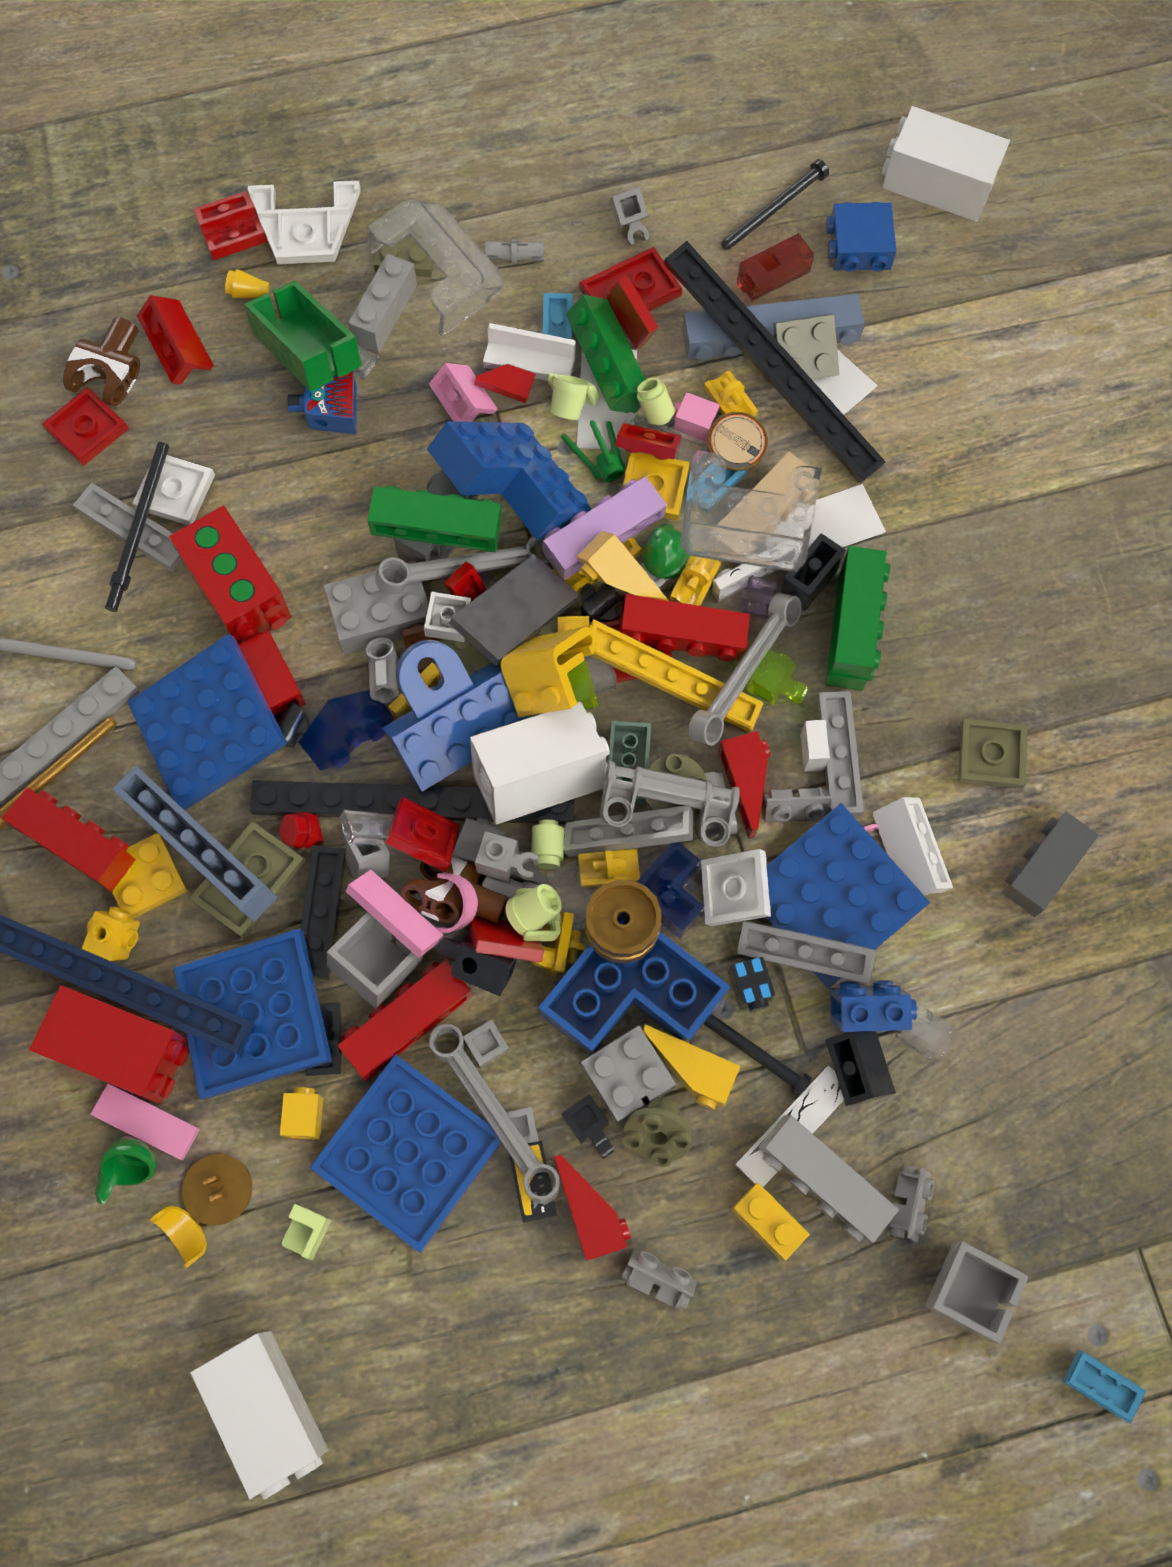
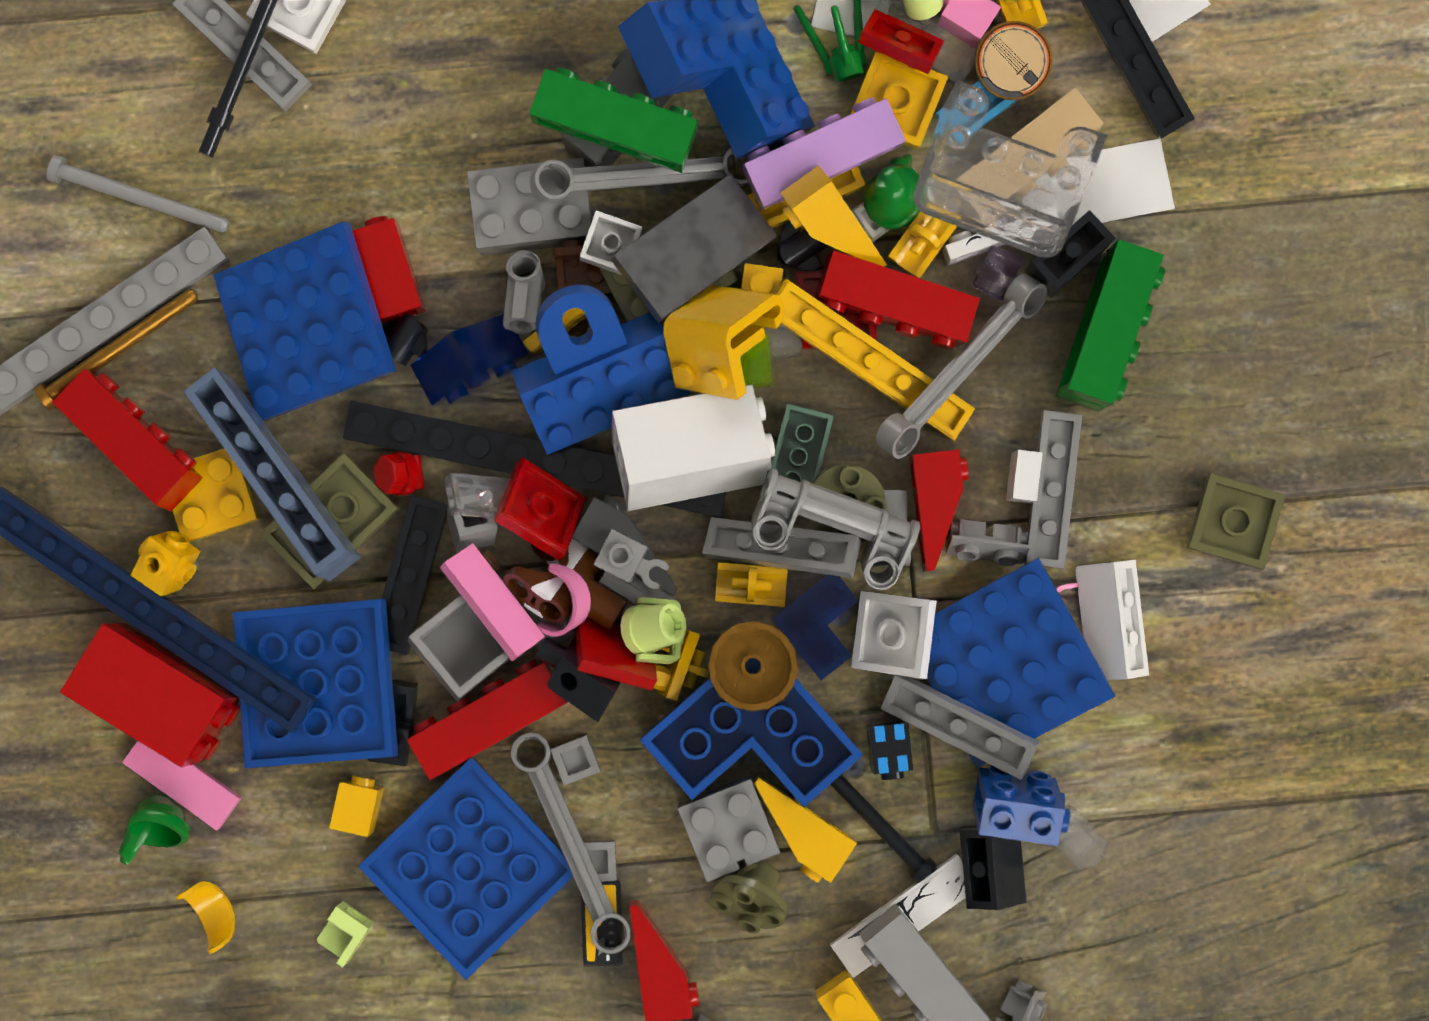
camera: 10 degrees right, 15 degrees up
(216, 1189) = (253, 867): pearl gold piece -> none
(231, 575) = (354, 139): red brick -> none
(465, 582) = (641, 205): red plate -> none
(548, 844) = (684, 541): yellowish green brick -> none
(573, 897) = (706, 615): clear tile -> none
(587, 1123) = (673, 871): black plate -> none
(775, 678) = (994, 382): clear neon green brick -> none
(1049, 863) = (1269, 667): dark grey brick -> none

